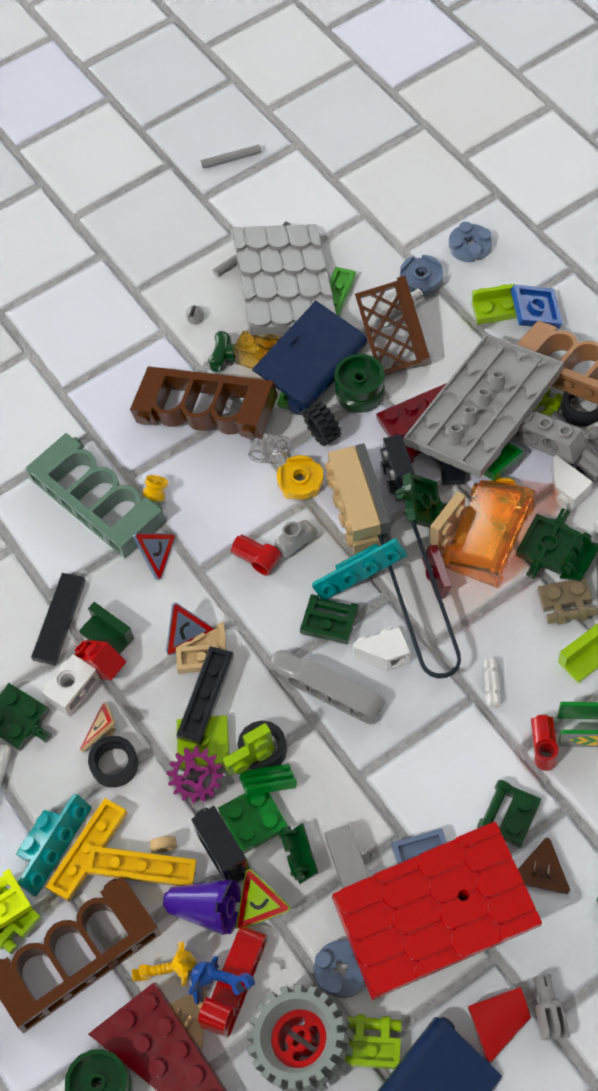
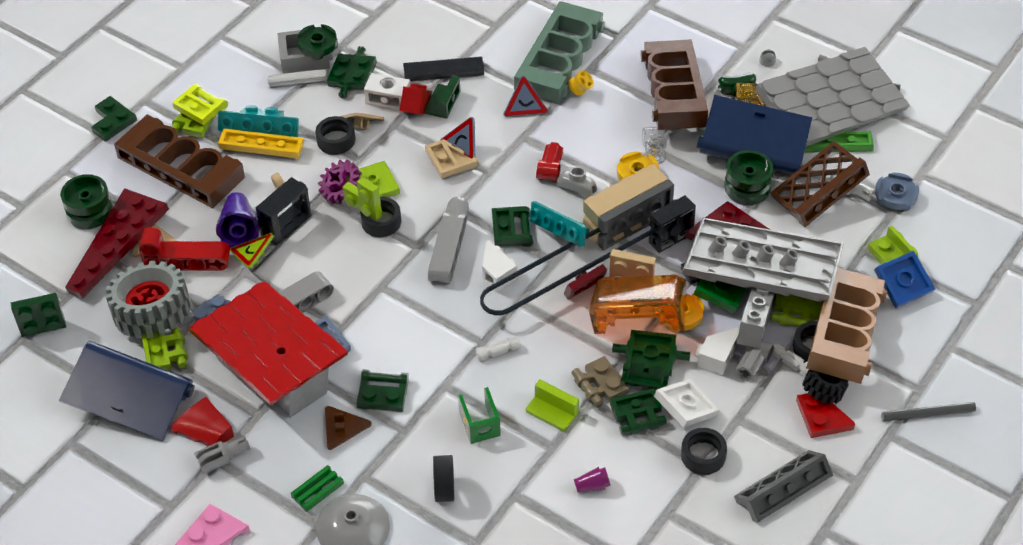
camera: 65 degrees right, 10 degrees down
(140, 866) = (254, 171): yellow plate -> none
(181, 964) = (189, 219): yellow piece -> none
(205, 695) = (408, 167): black tile -> none
(206, 972) = (181, 232): blue piece -> none
(230, 156) = (953, 29): light grey bar -> none
(252, 820) = (320, 231): green plate -> none
(268, 778) = (355, 225): green tile -> none
(301, 857) = (306, 258): dark green hinge -> none
(321, 423) = (692, 163): black tyre -> none
(421, 499) = (641, 238): dark green plate -> none
(470, 232) = (965, 210): sand blue plate -> none
(544, 741) = (446, 396): red piece -> none

